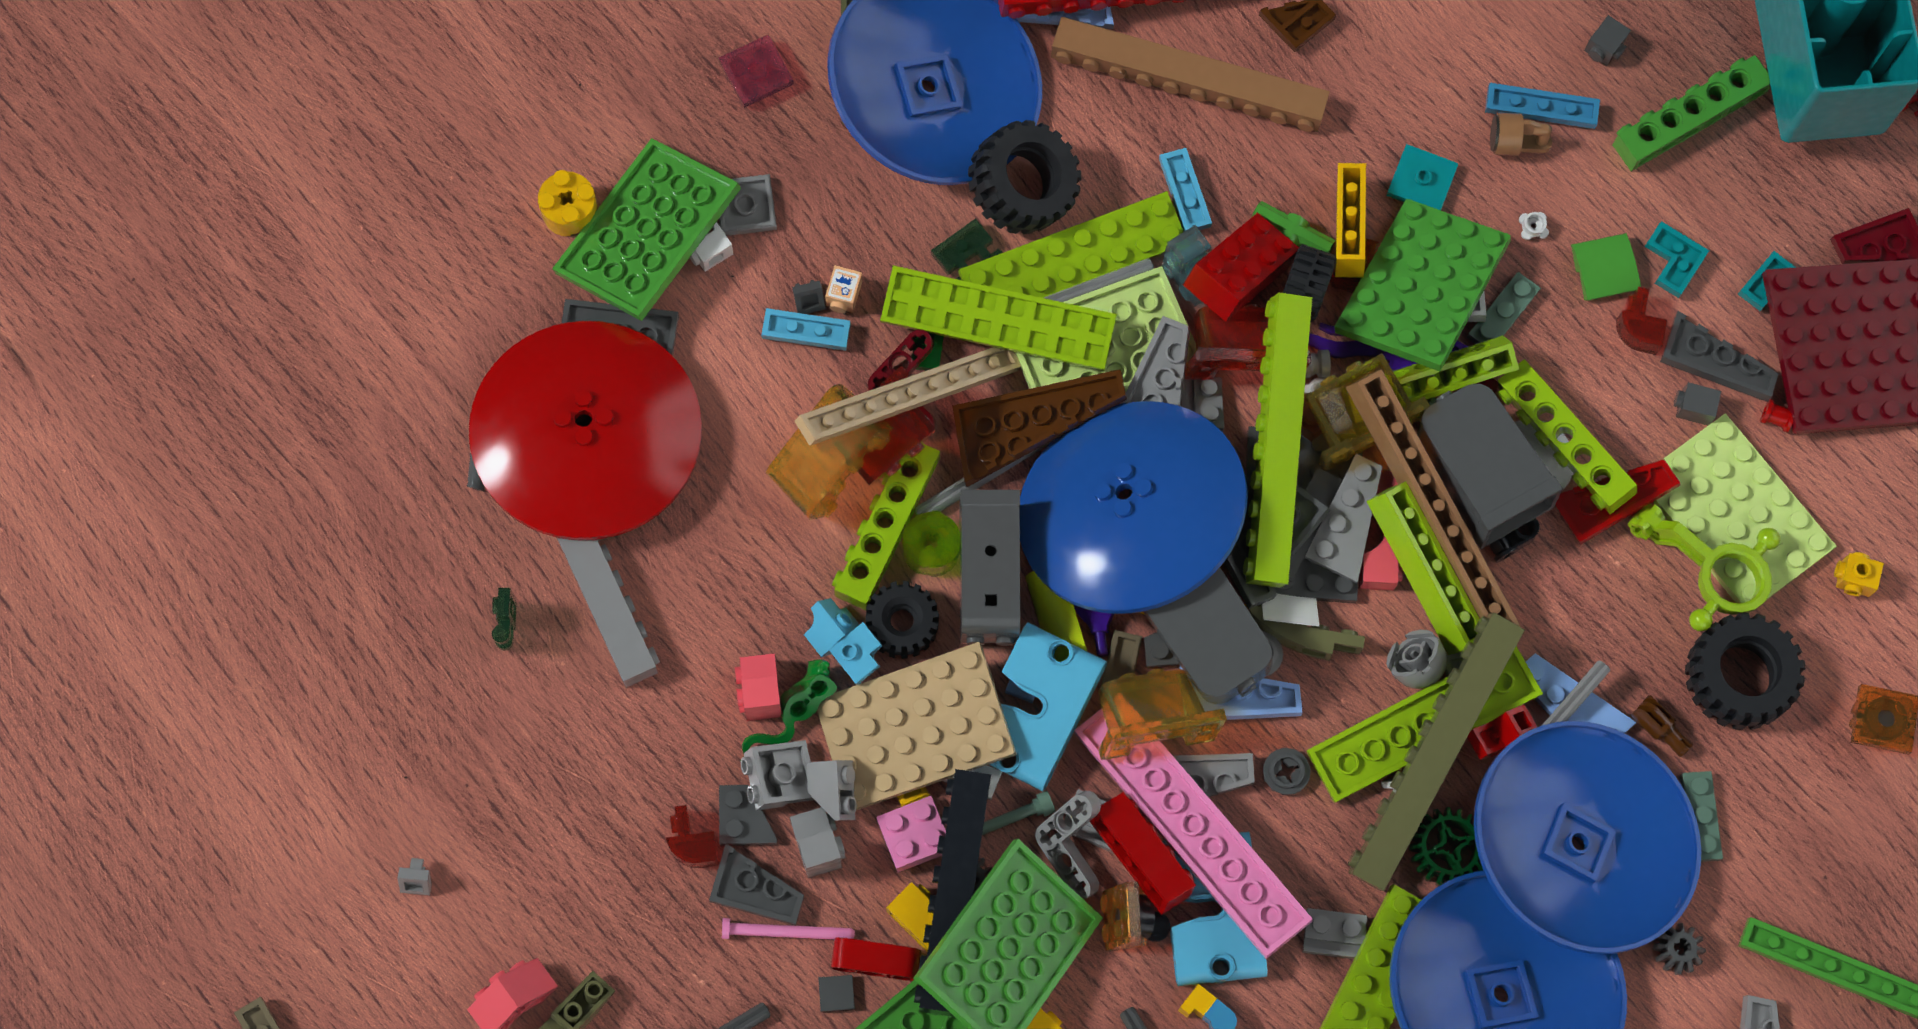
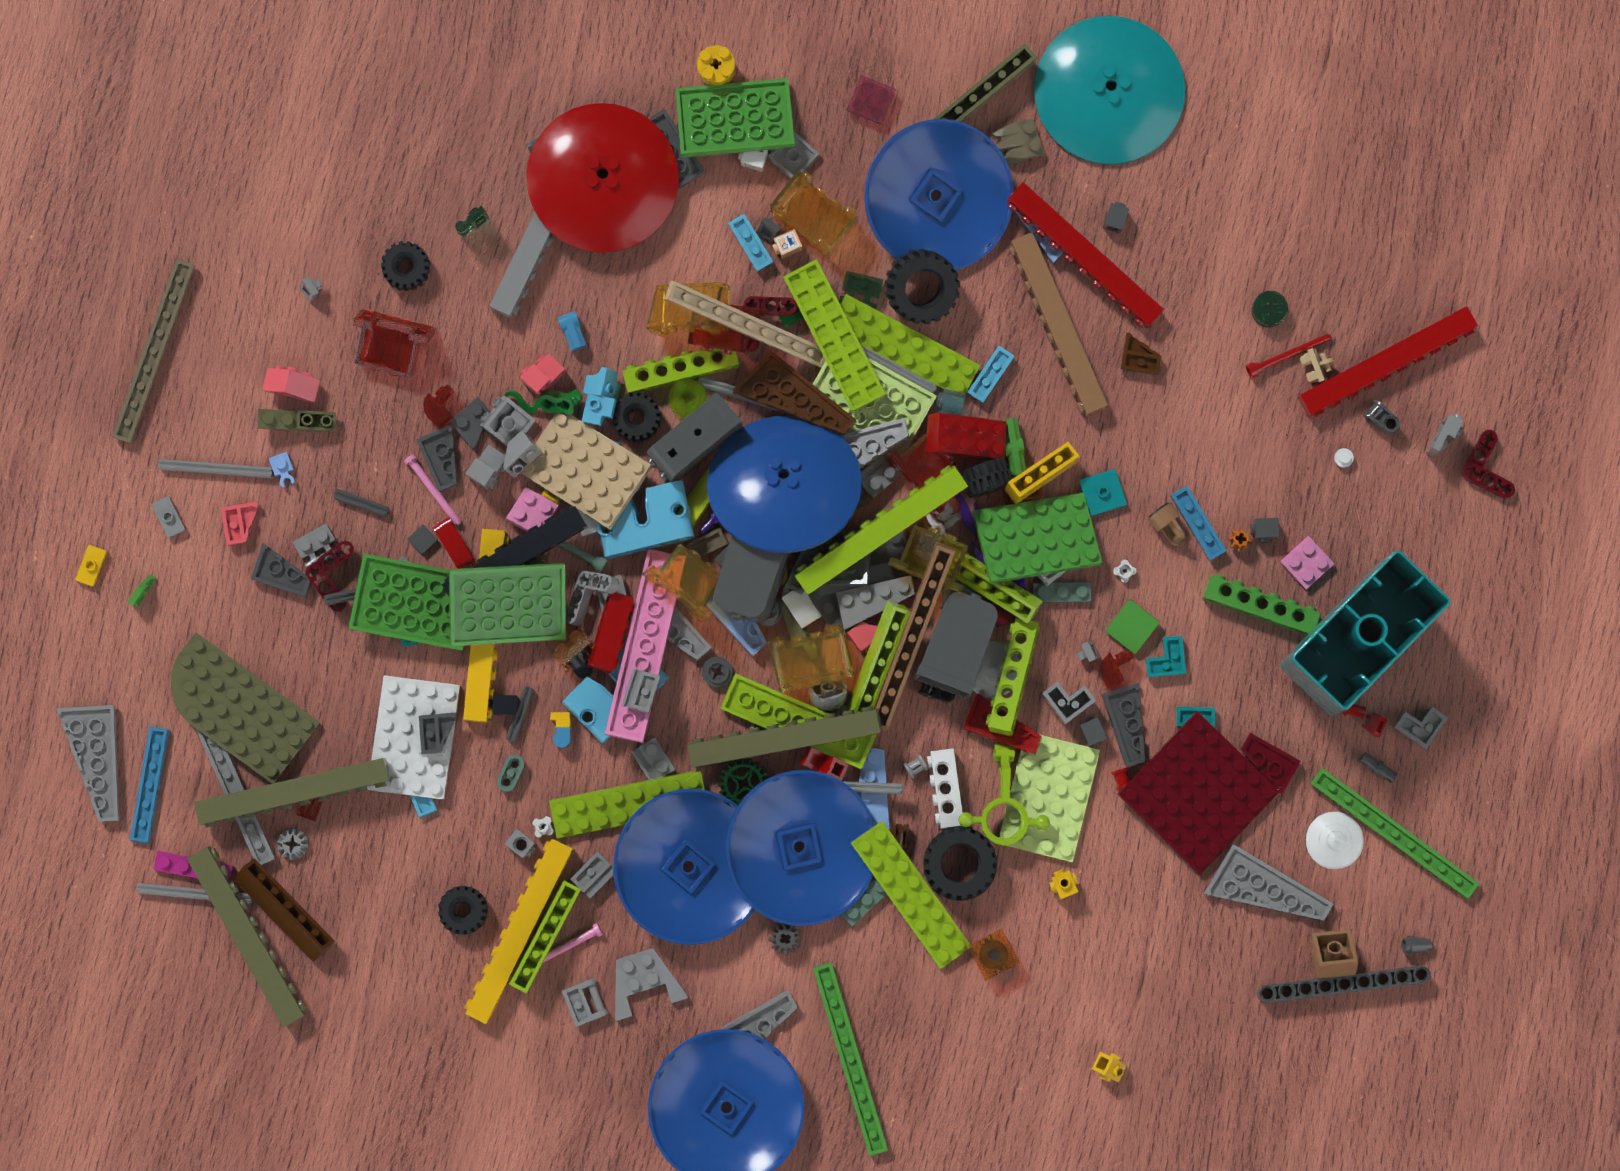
camera: 55 degrees right, 10 degrees up
(482, 721) = (402, 252): none -> black tyre
(565, 835) = (390, 342): none -> clear red windscreen
(727, 609) = (571, 327): none -> dark azure piece
(840, 232) = (813, 214): none -> clear yellow windscreen
(1248, 870) = (641, 690): none -> light grey plate
(1365, 647) = (811, 659): none -> clear yellow windscreen
(1584, 632) = (915, 766): none -> light grey bush
(1590, 75) = (1244, 536): none -> orange gear
(1599, 335) = (1089, 651): none -> light grey tile
(1631, 603) = (946, 758): none -> white brick
(1645, 407) = (1067, 707): none -> light grey brick
(1679, 30) = (1306, 562): none -> bright pink plate
(1738, 757) = (911, 894): none -> lime plate

